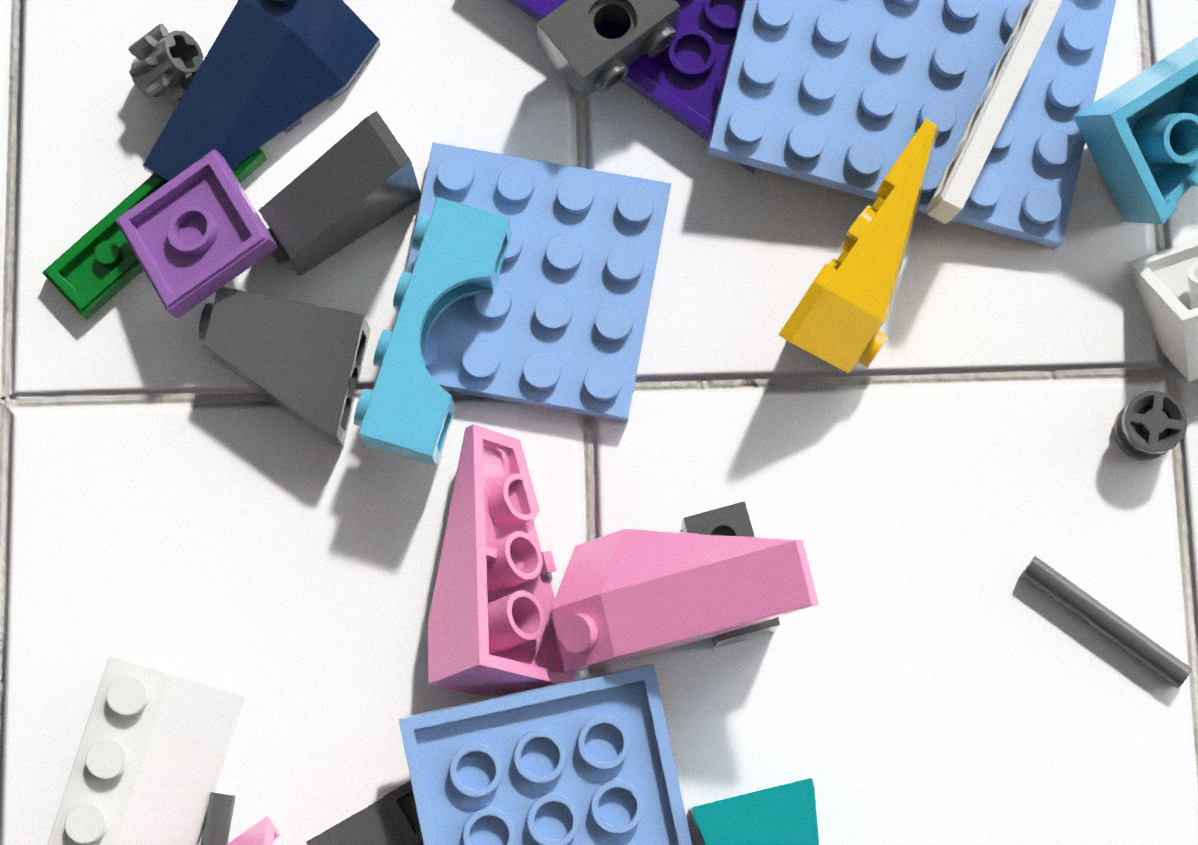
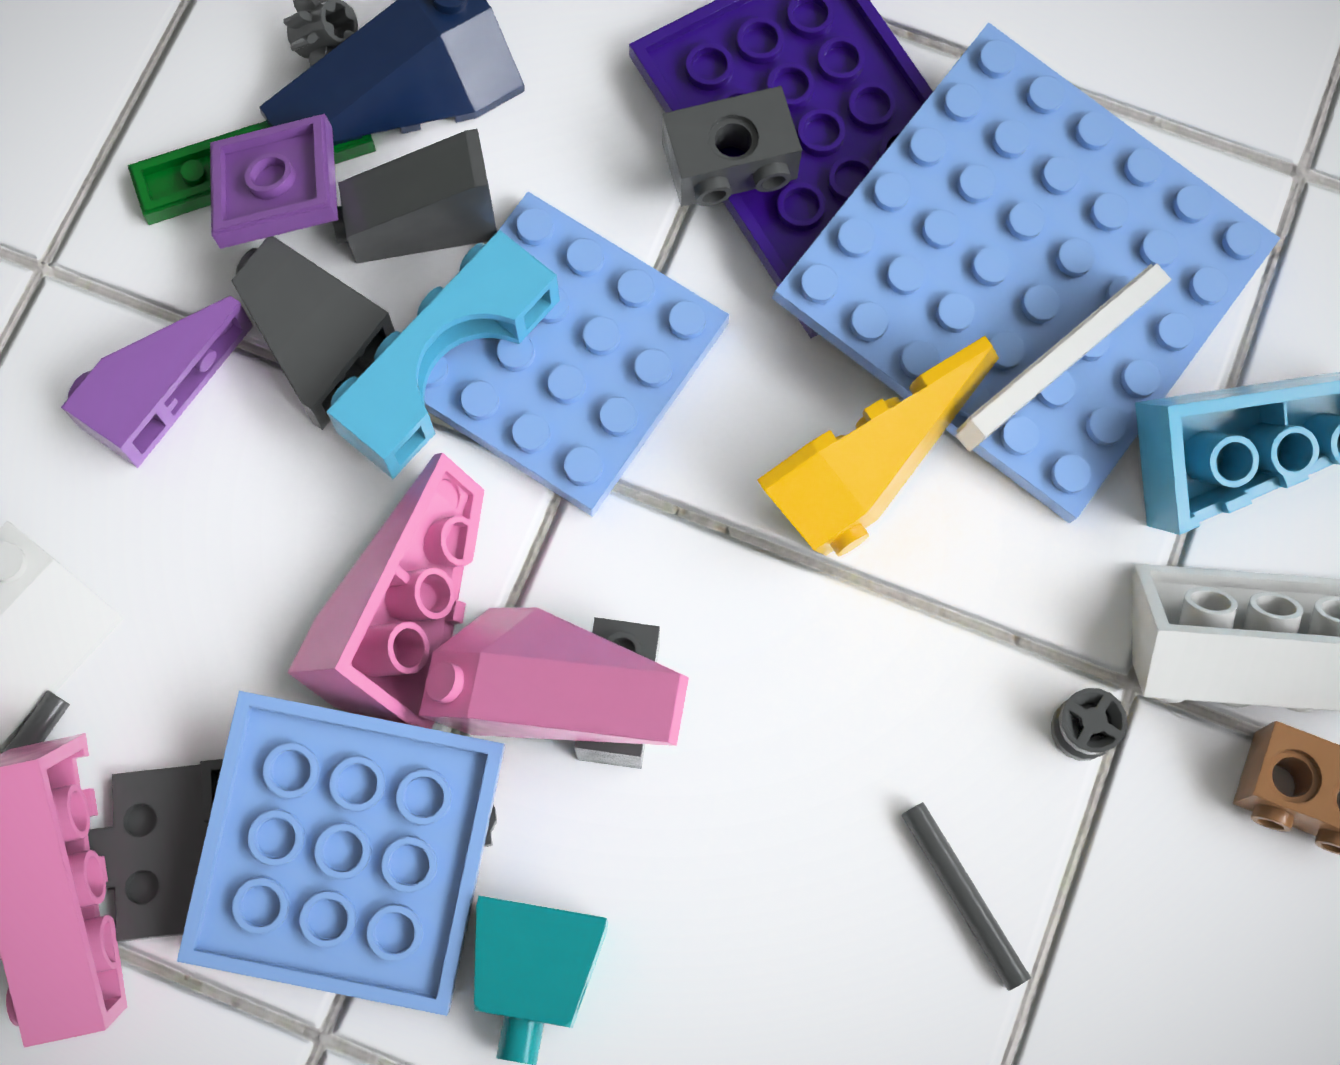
camera: 20 degrees right, 5 degrees down
(166, 475) = (148, 385): none -> medium lavender slope

